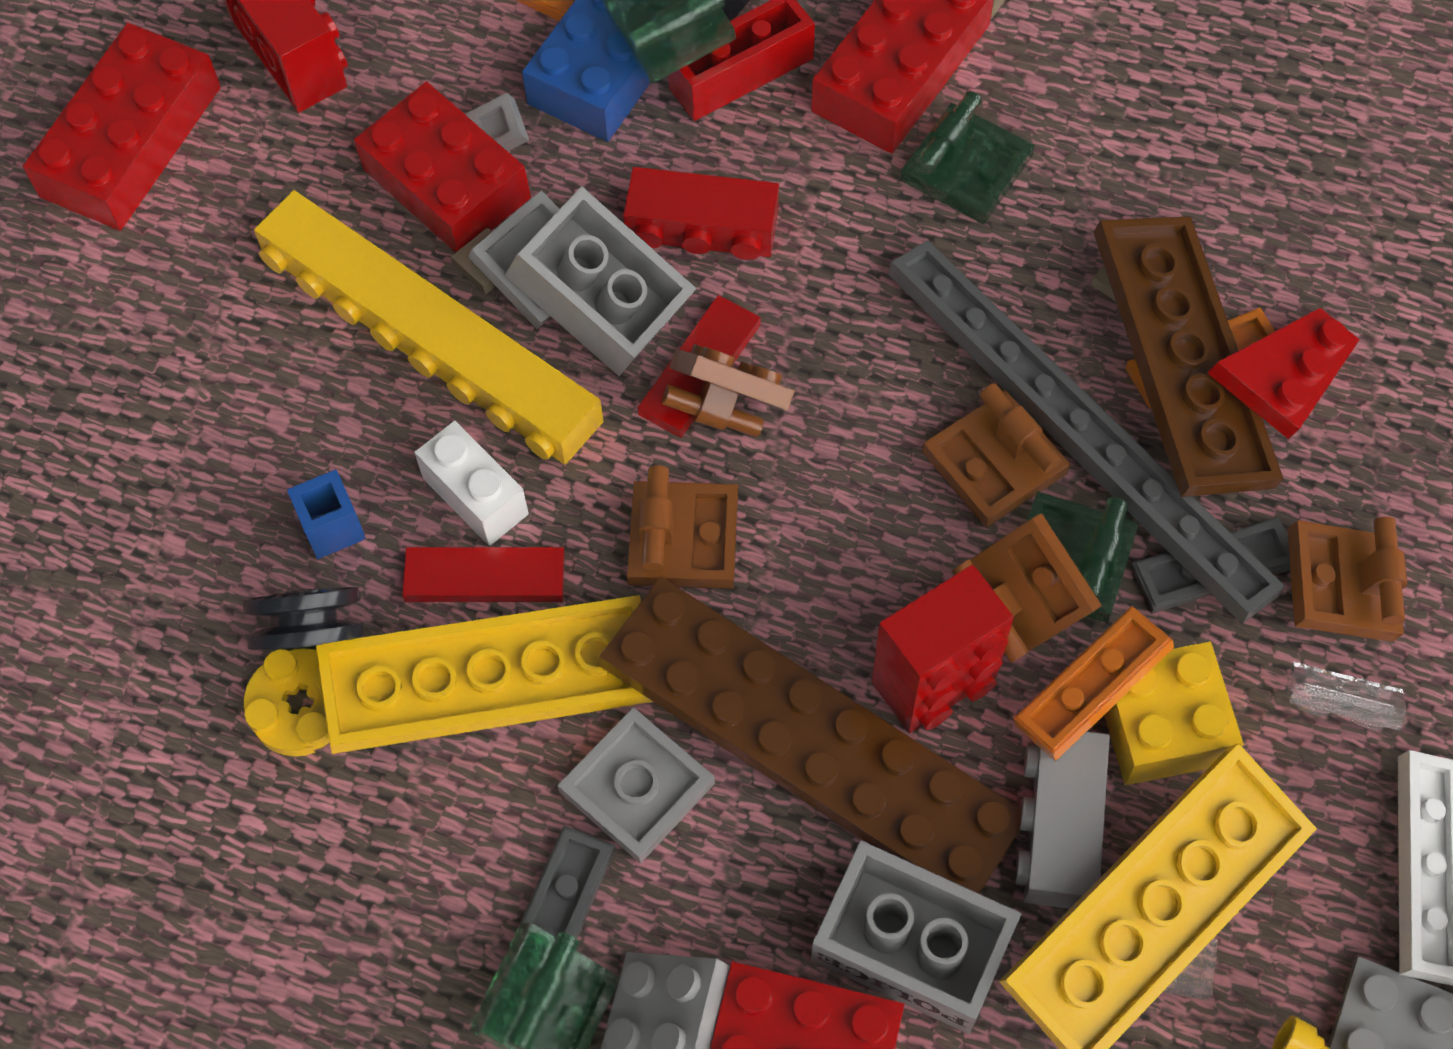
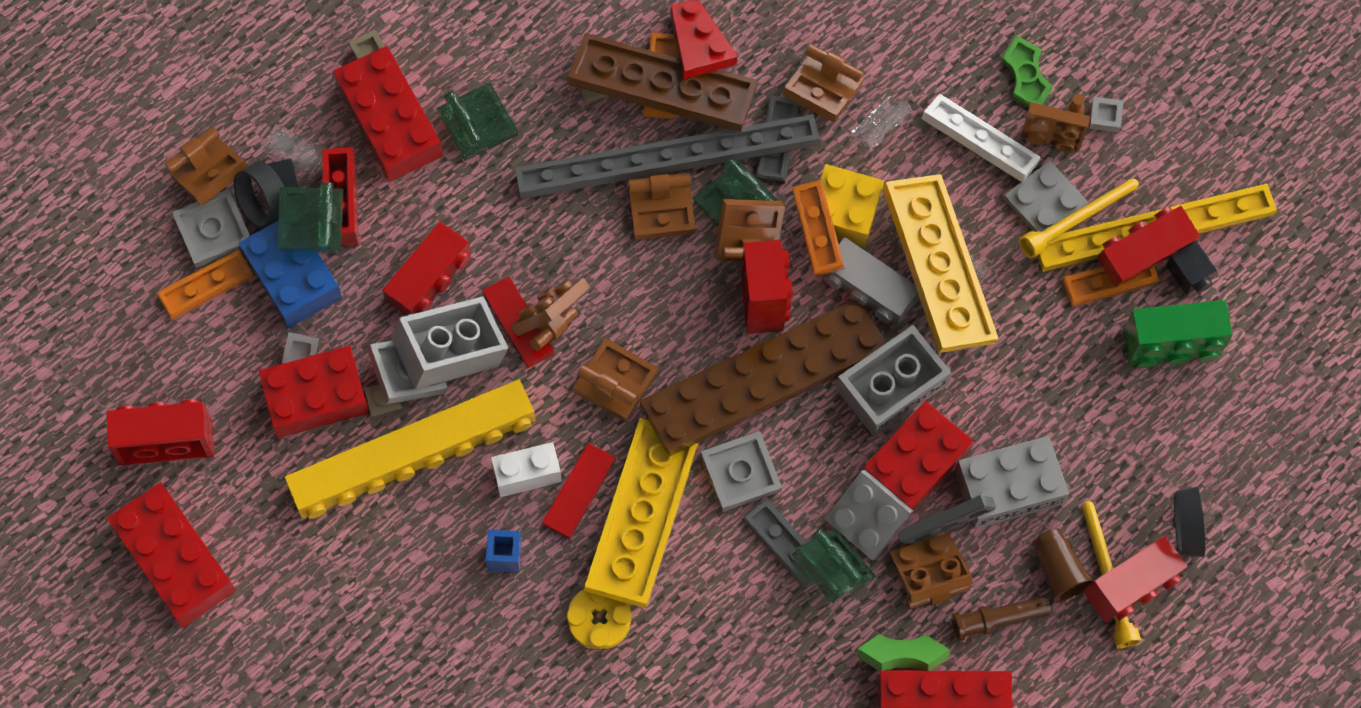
camera: 65 degrees left, 5 degrees up
(303, 618) = (563, 587): black wheel -> none

